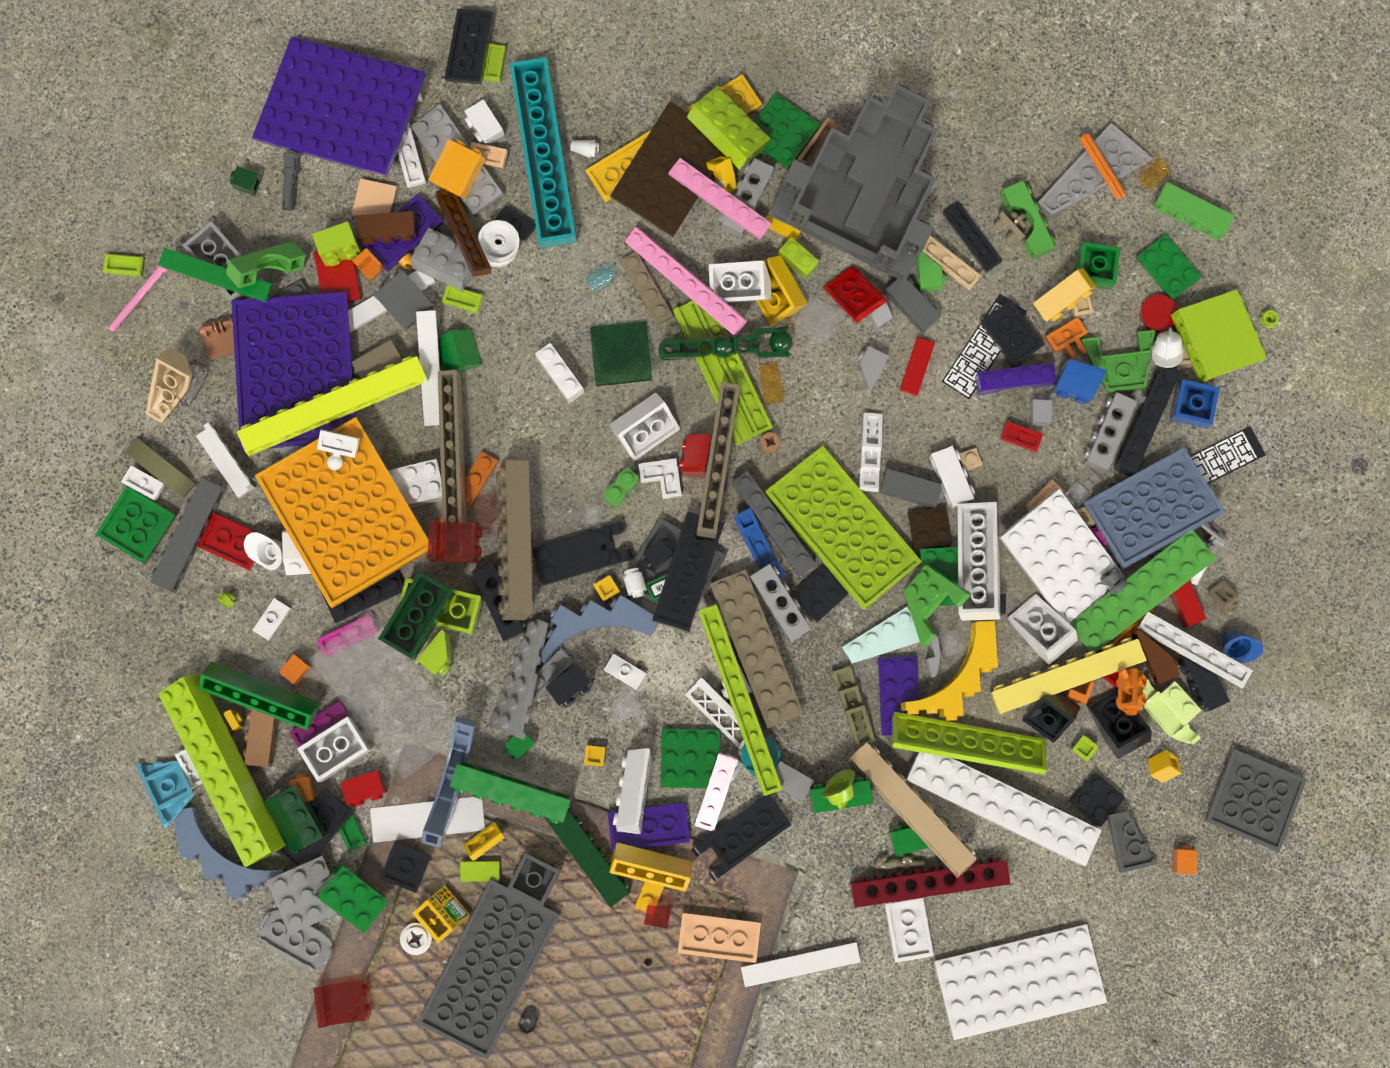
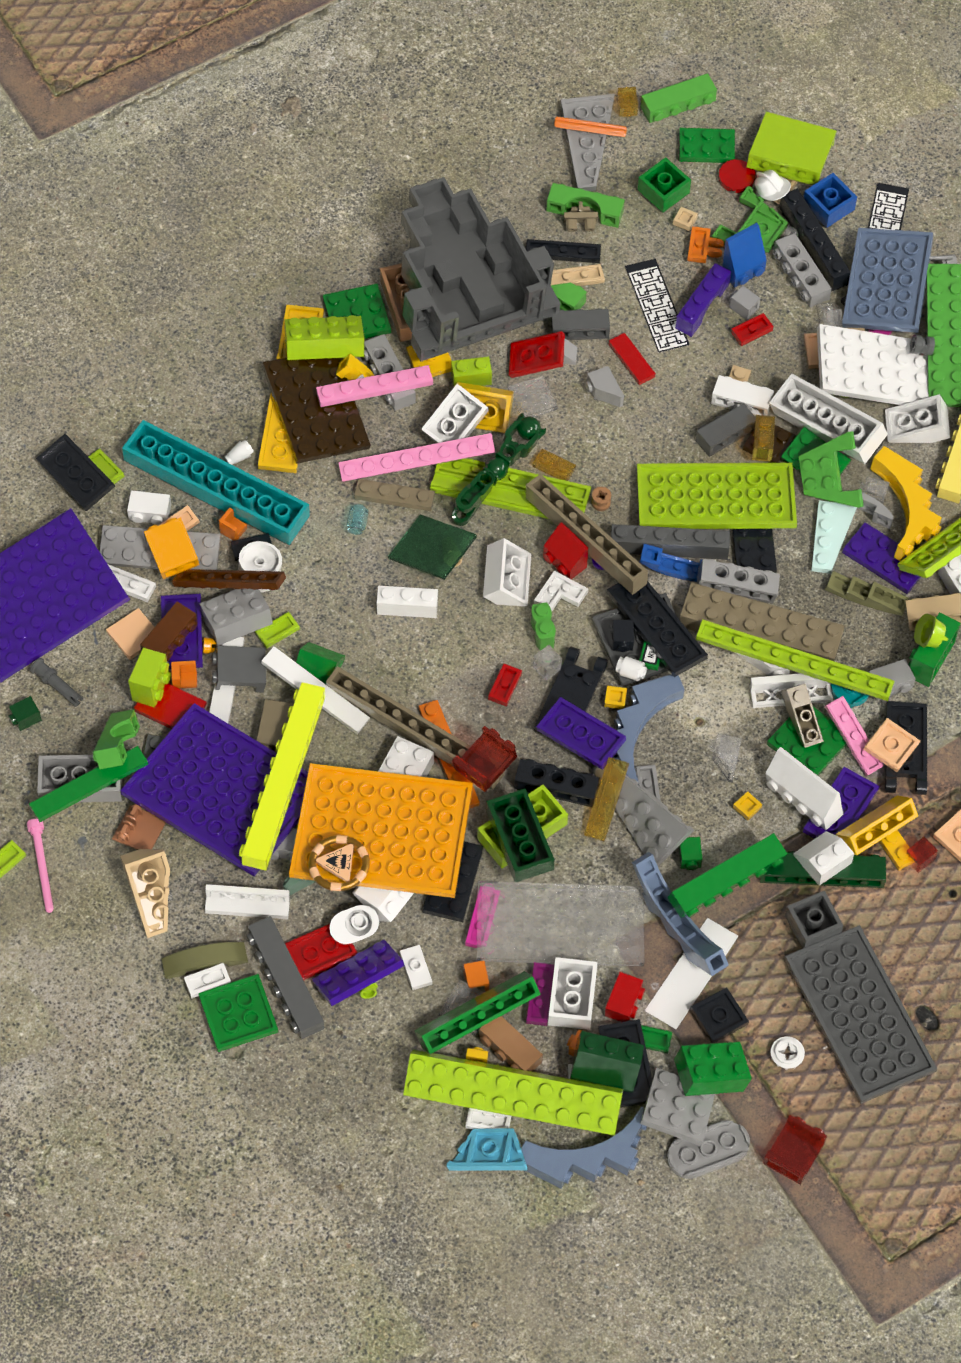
camera: 50 degrees left, 20 degrees down
(230, 583) = (358, 972): none -> dark purple plate
(283, 506) = (338, 862): none -> piece
(339, 445) = (323, 788): white plate -> none
(437, 655) = (566, 855): lime slope -> none
(441, 914) = (784, 1016): yellow slope -> none
(479, 871) = (770, 963): lime tile -> none
(483, 841) = (748, 938): yellow plate -> none
(510, 650) = (606, 799): none -> clear yellow tile
(514, 540) = (521, 723): dark tan brick -> none
(519, 194) = (231, 526): none -> orange panel
(549, 590) = (581, 733): none -> dark purple plate
(550, 499) = (505, 685): none -> red plate
(569, 686) = (675, 777): black brick -> none
(588, 848) = (824, 857): none -> white slope
(625, 671) = (696, 735): white plate -> none
(700, 740) = (802, 714): none -> dark tan slope
(730, 826) = (891, 745): none -> light nougat tile
(870, 452) = (671, 437): white slope -> none
(921, 524) = (763, 438): none -> clear yellow brick
(1011, 333) = (664, 277): black plate -> none
(1065, 295) = (669, 218): yellow brick -> none
(1269, 314) = (806, 107): lime plate -> none

